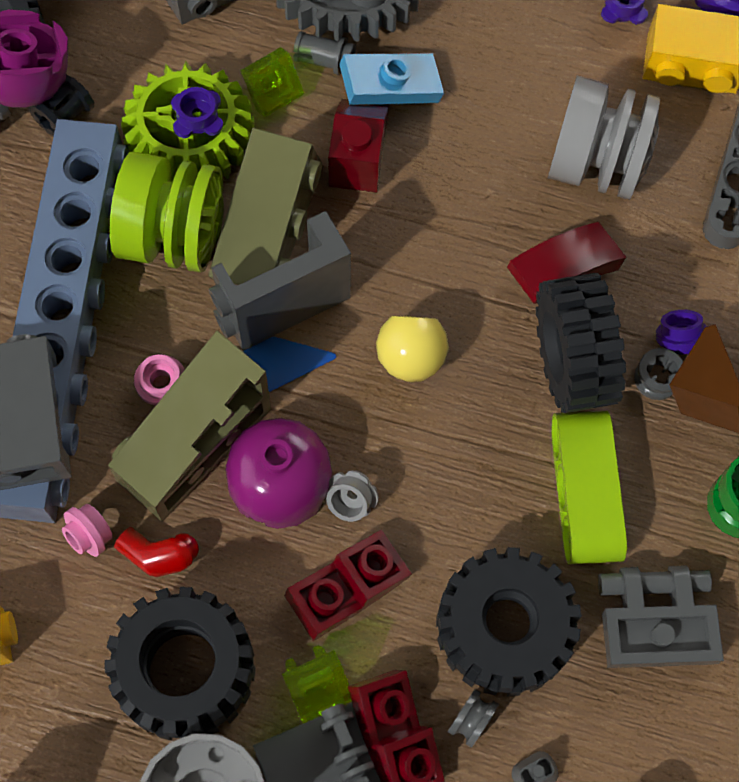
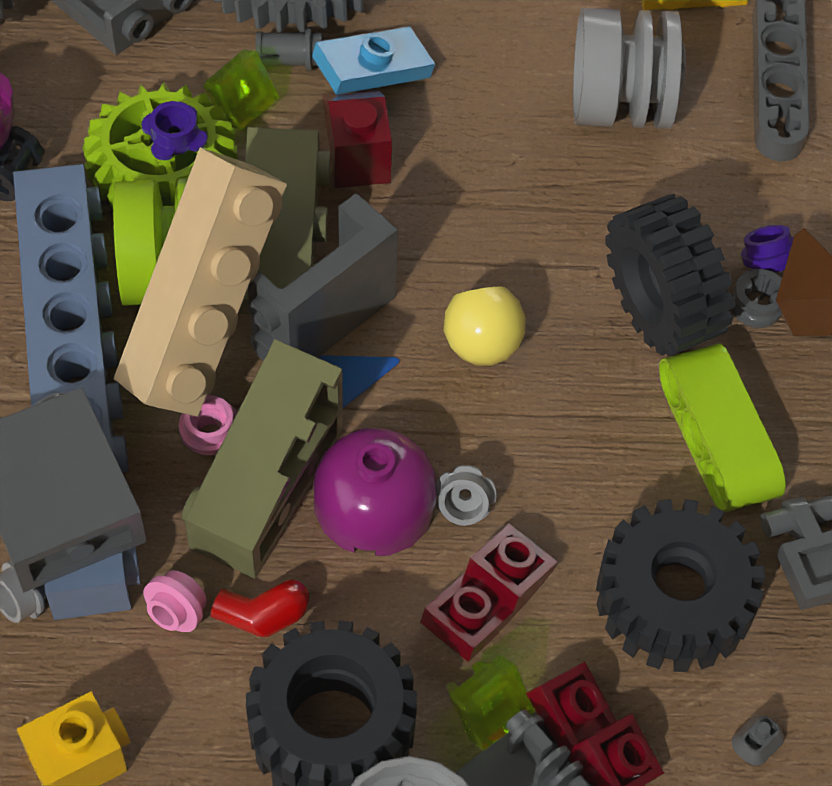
camera: 15 degrees left, 10 degrees down
(170, 262) = (199, 282): none -> tan brick
(473, 718) = (673, 694): dark grey bush -> none
(567, 255) = (616, 194): dark red slope -> none

